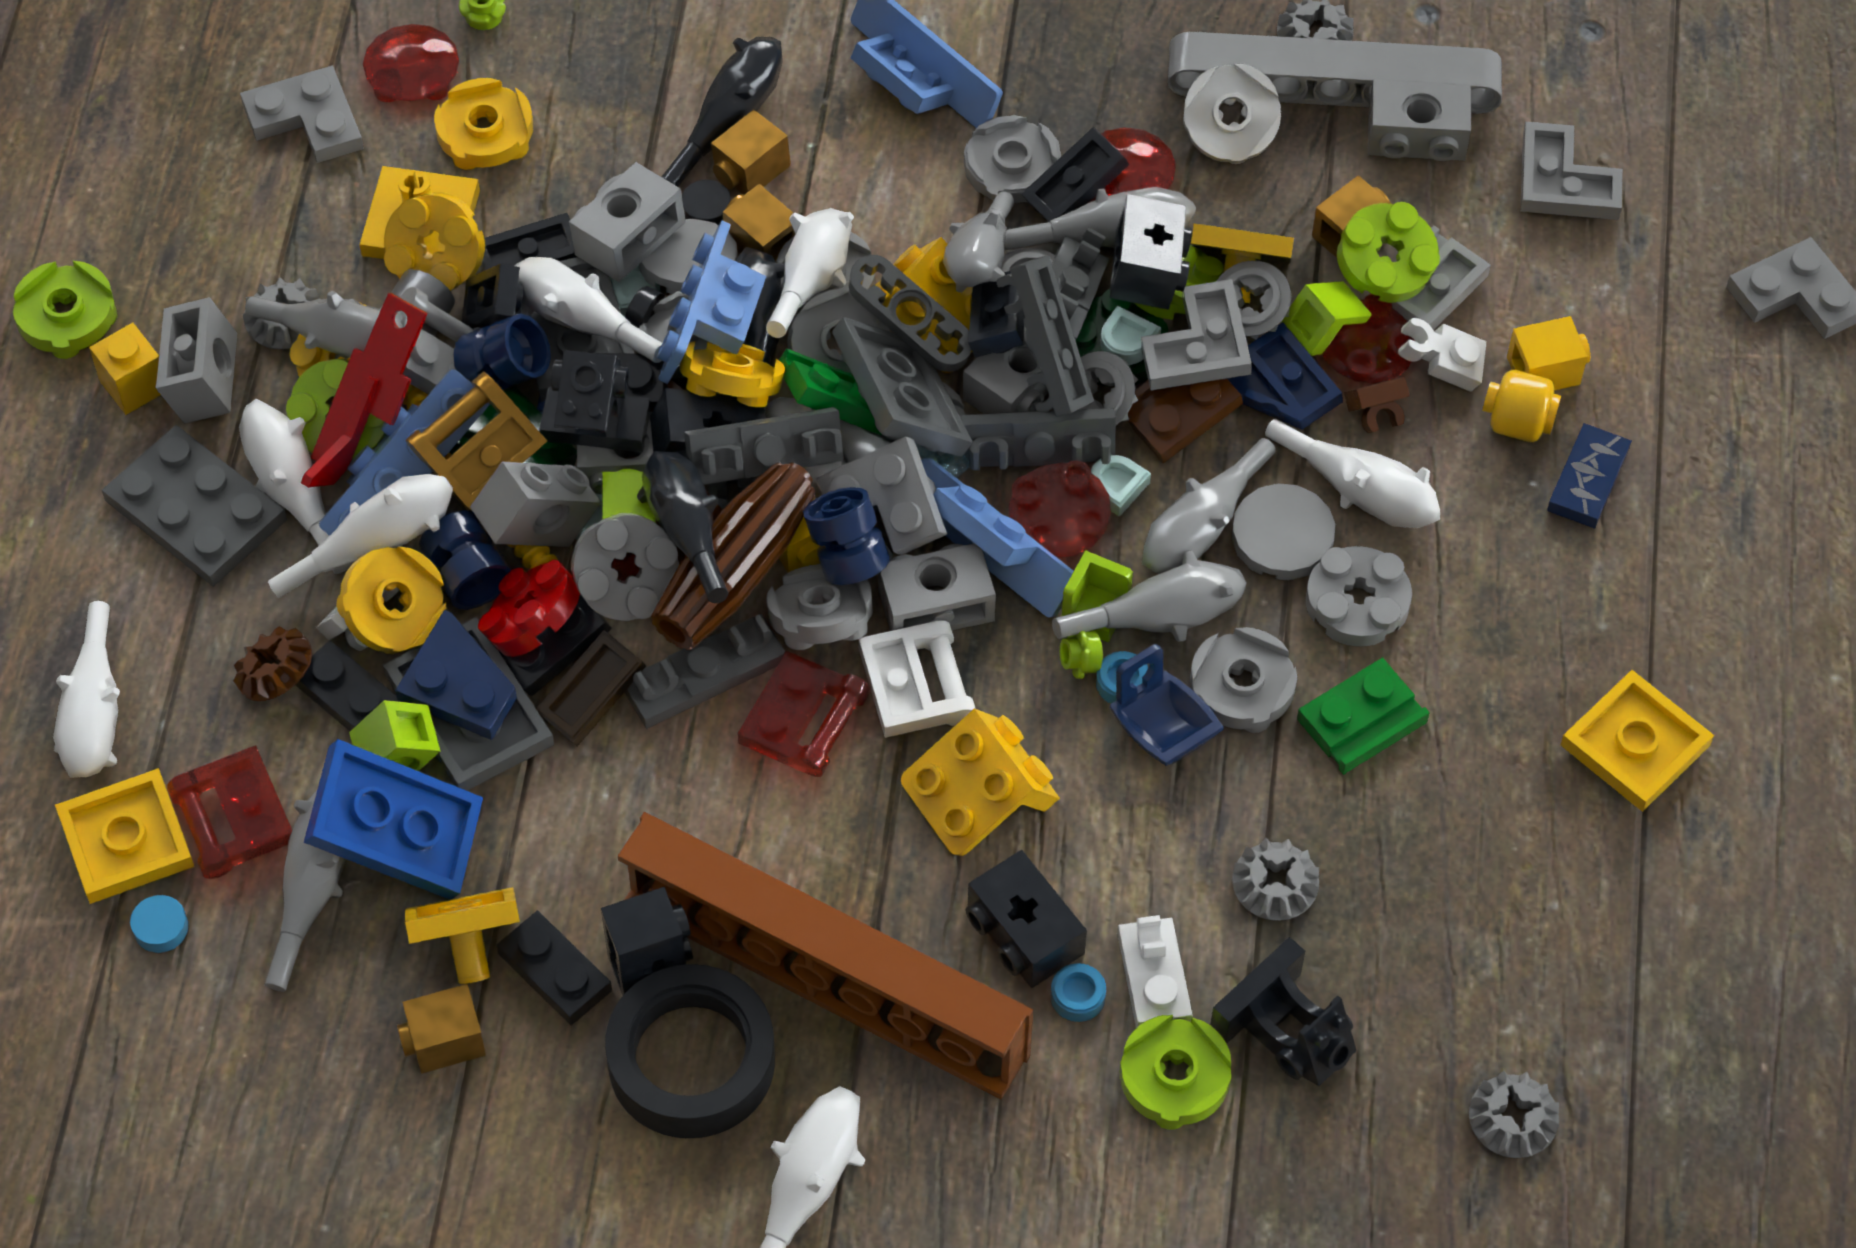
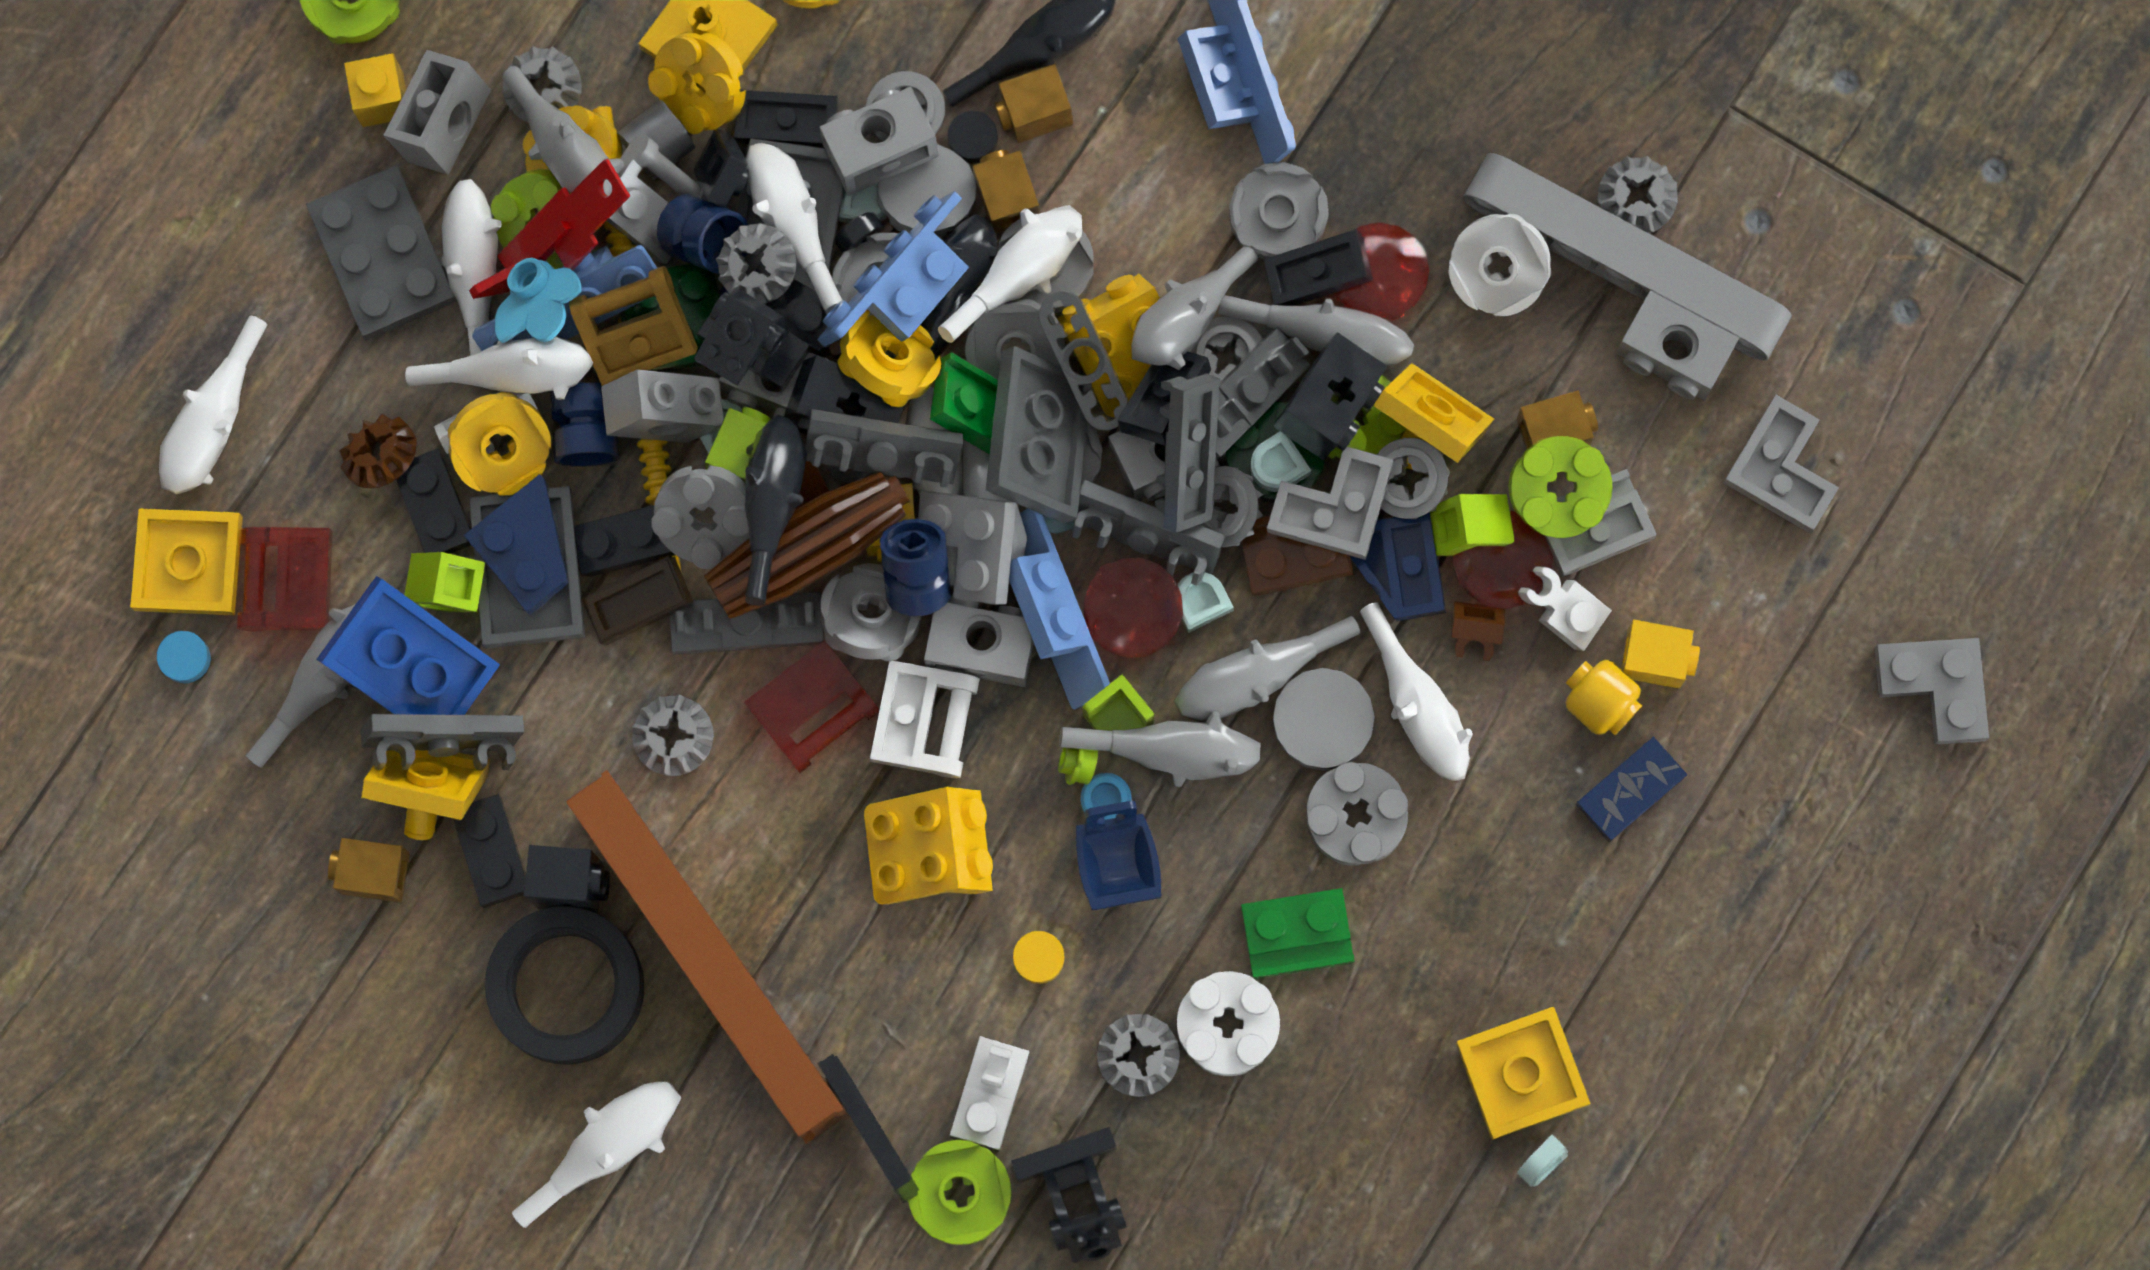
camera: 30 degrees right, 20 degrees up
(373, 454) = (536, 300): none -> medium azure plate
(459, 868) = (442, 736): none -> dark grey plate
(528, 606) = (591, 512): red plate -> none
(585, 334) = (778, 258): none -> light grey gear
(704, 801) = (687, 753): none -> light grey gear
(1022, 893) = (918, 1022): black brick -> none
(1078, 992) = (917, 1080): dark azure tile -> none
(1082, 1051) = (869, 1128): none -> black tile
(1135, 836) = (1038, 957): none -> yellow tile
(1271, 671) = (1237, 857): light grey plate -> none
(1351, 789) = (1250, 1003): none -> white plate
(1702, 800) = (1543, 1161): none -> light aqua tile

